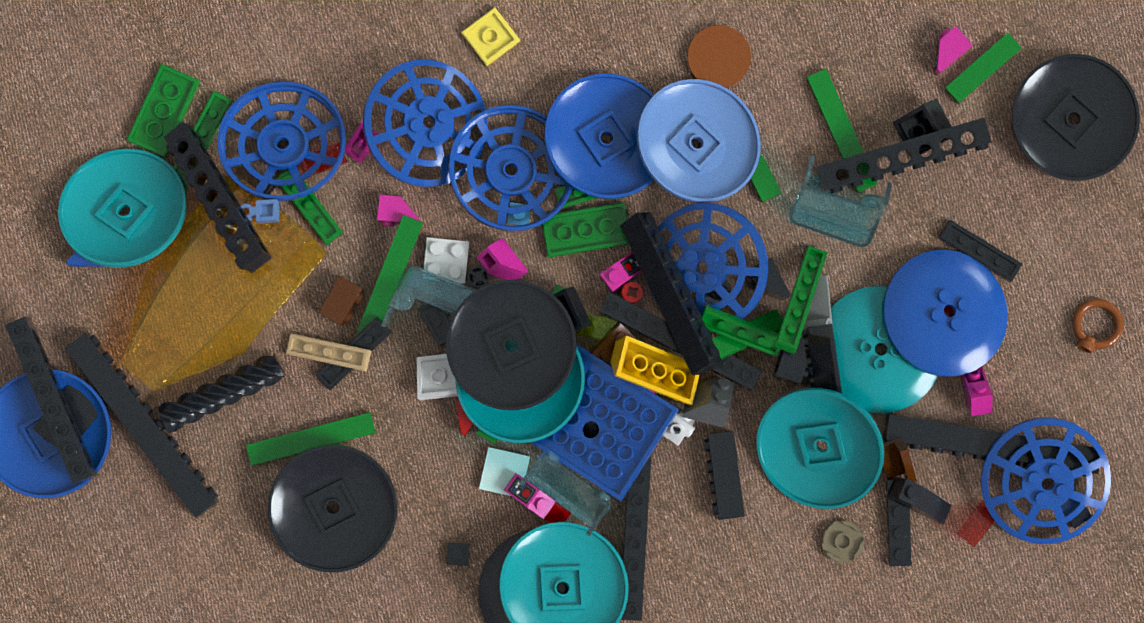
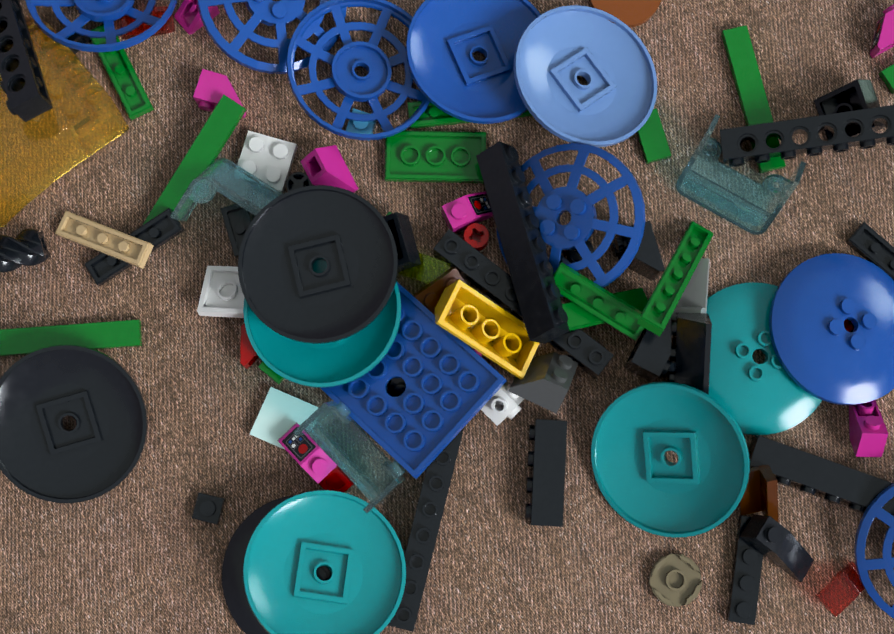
camera: 10 degrees right, 5 degrees down
(265, 211) = (60, 58): medium blue plate -> none
(342, 301) = (133, 184): reddish brown brick -> none

